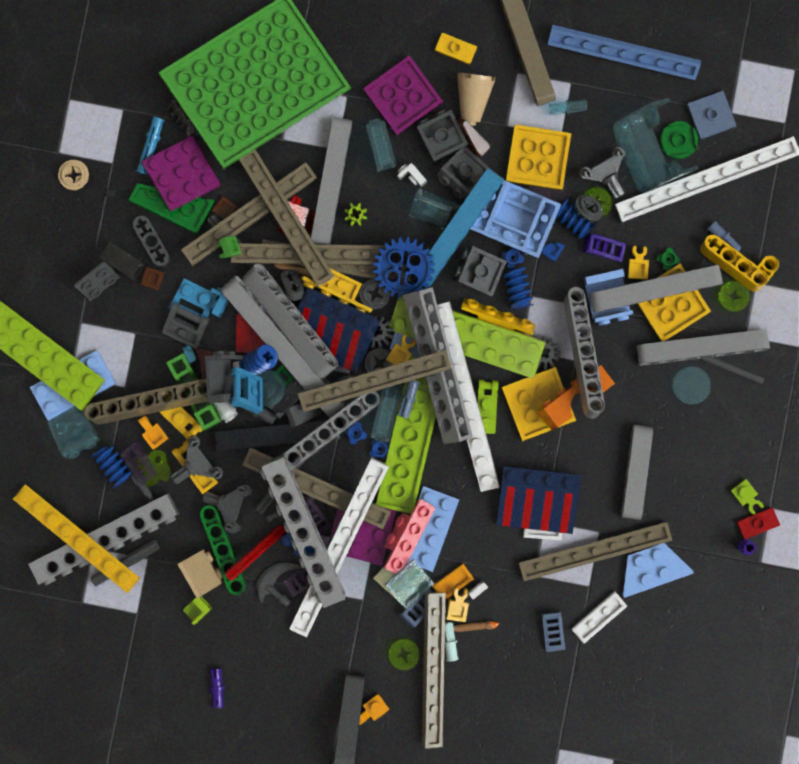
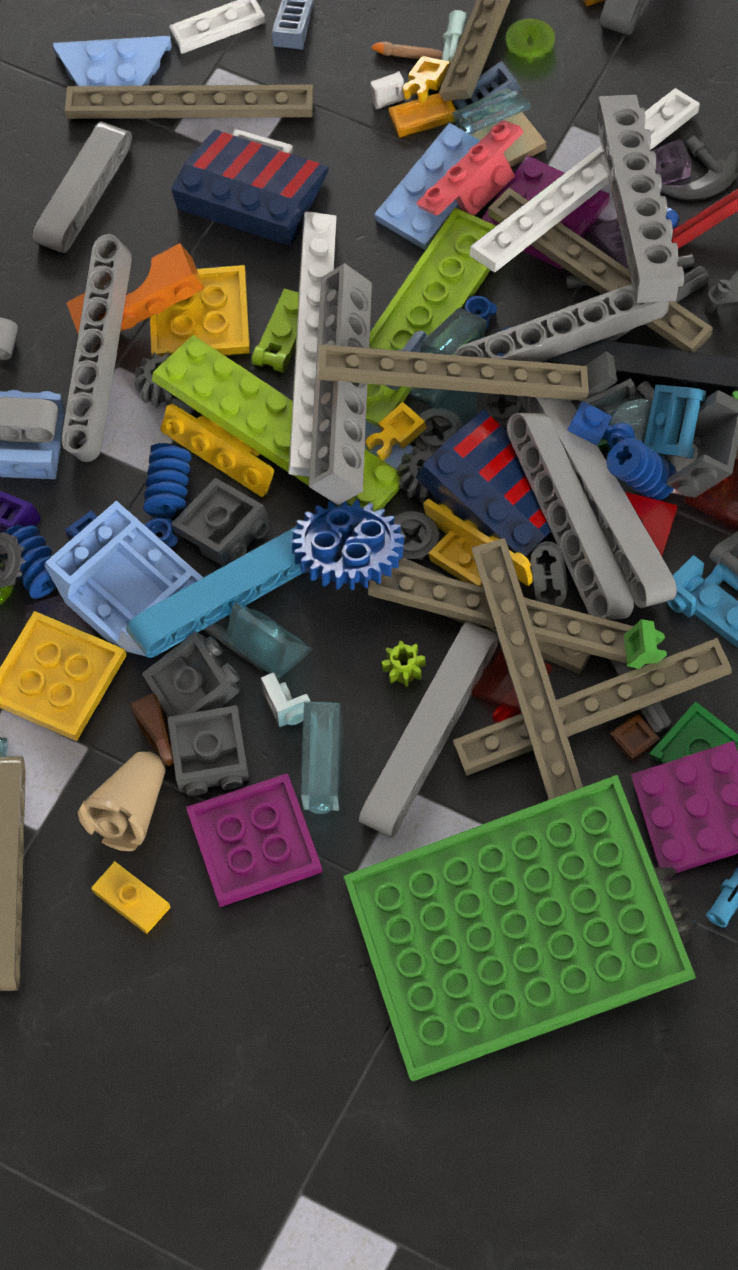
camera: 160 degrees left, 25 degrees down
(291, 378) = (593, 425): none -> blue plate

